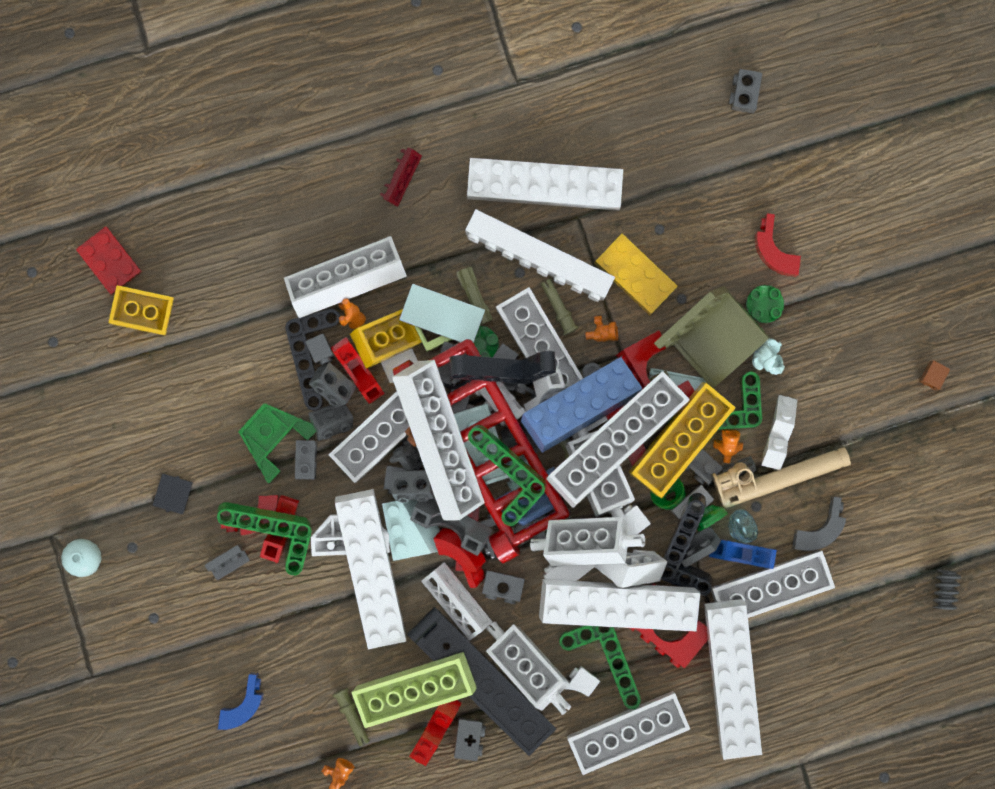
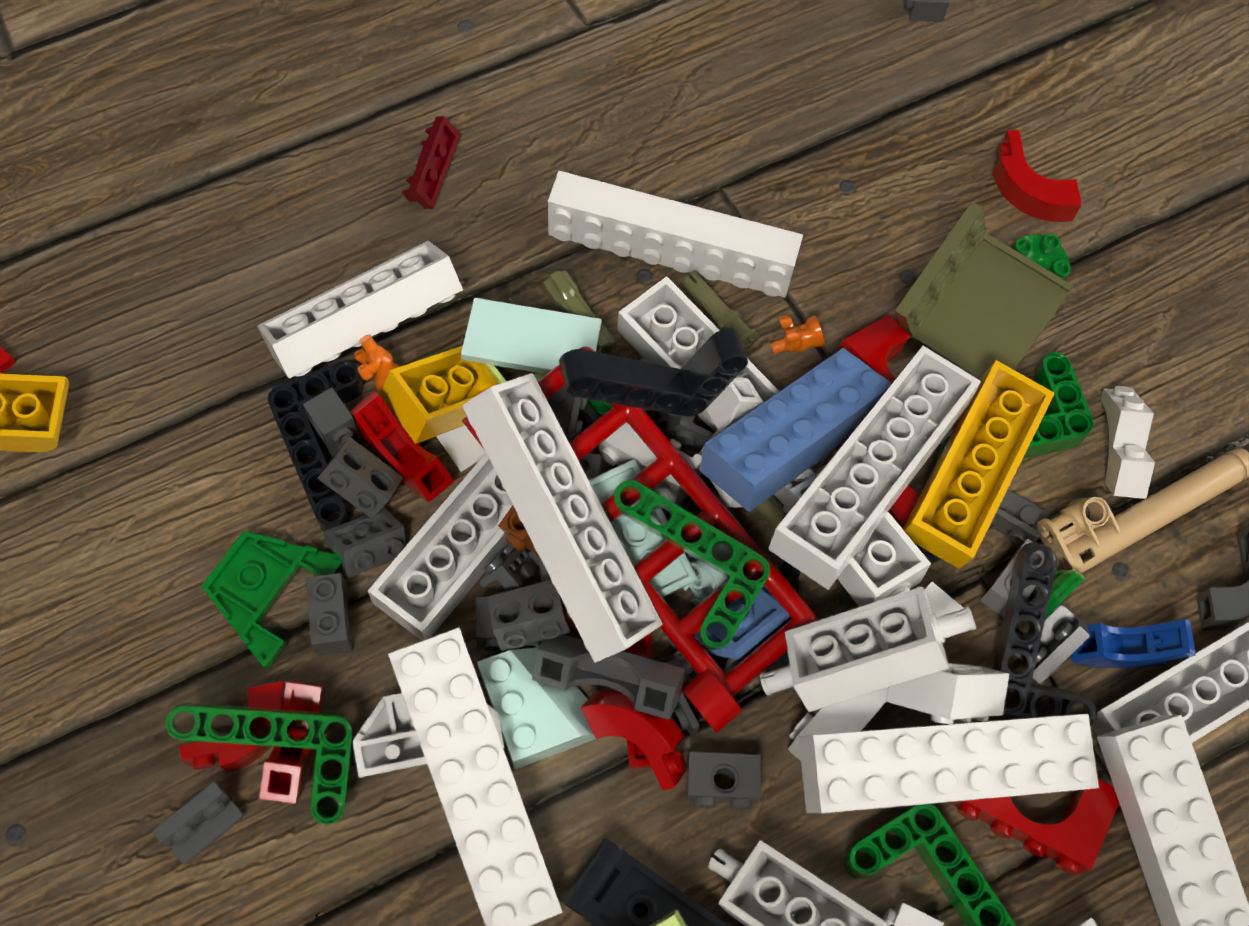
camera: 15 degrees left, 20 degrees down
(172, 494) = (88, 720): black piece -> none
(459, 599) = (650, 815): white fence -> none
(545, 184) = (660, 141): white brick -> none
(636, 274) = (836, 245): yellow brick -> none
(662, 503) = (987, 557): green piece -> none
(729, 445) = (1050, 474): orange piece -> none
(743, 526) = (1112, 602): clear light blue piece -> none
(767, 357) = (1071, 330): light aqua hair -> none

